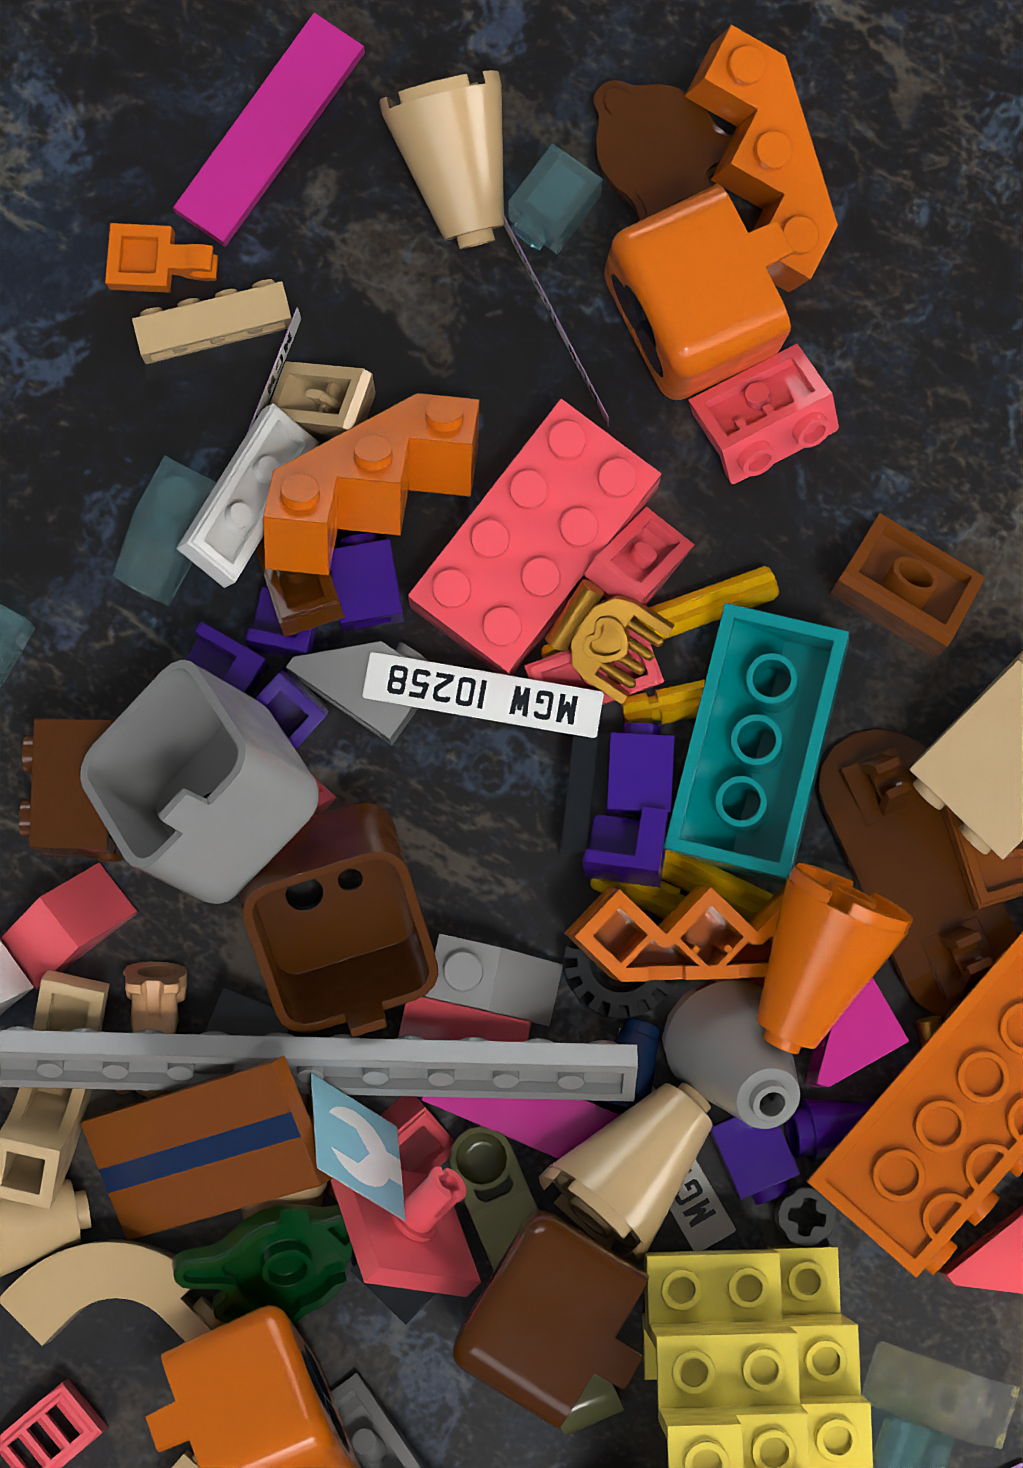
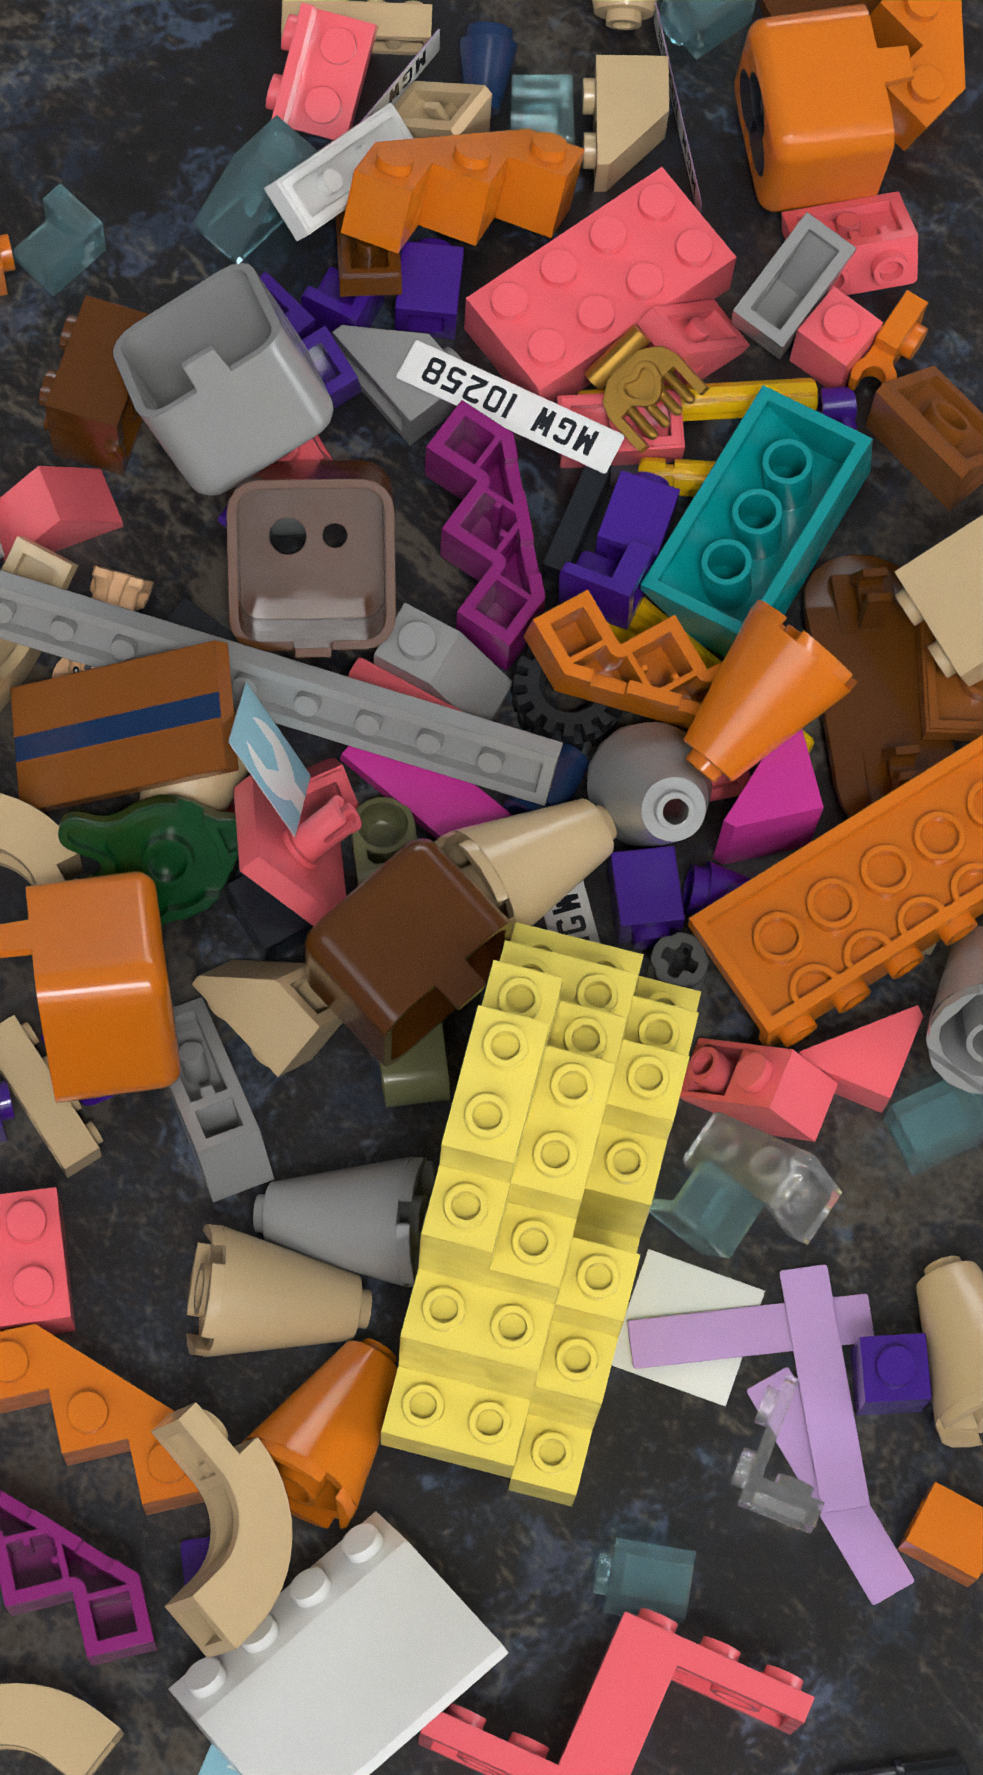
camera: 10 degrees right, 10 degrees down
(194, 388) = (321, 71): none -> coral bracket
(353, 326) = (487, 58): none -> dark blue cone
(418, 1375) = (270, 1010): none -> tan slope
(424, 363) = (543, 104): none -> clear light blue panel
(500, 828) = (488, 531): none -> magenta brick
(508, 338) = (628, 114): none -> tan slope
(724, 486) = (792, 285): none -> light grey slope
(780, 523) = (834, 339): none -> coral brick
(802, 586) = (839, 405): none -> dark purple hand
(840, 500) = (898, 337): none -> orange plate
(916, 1313) = (760, 1087): none -> coral slope

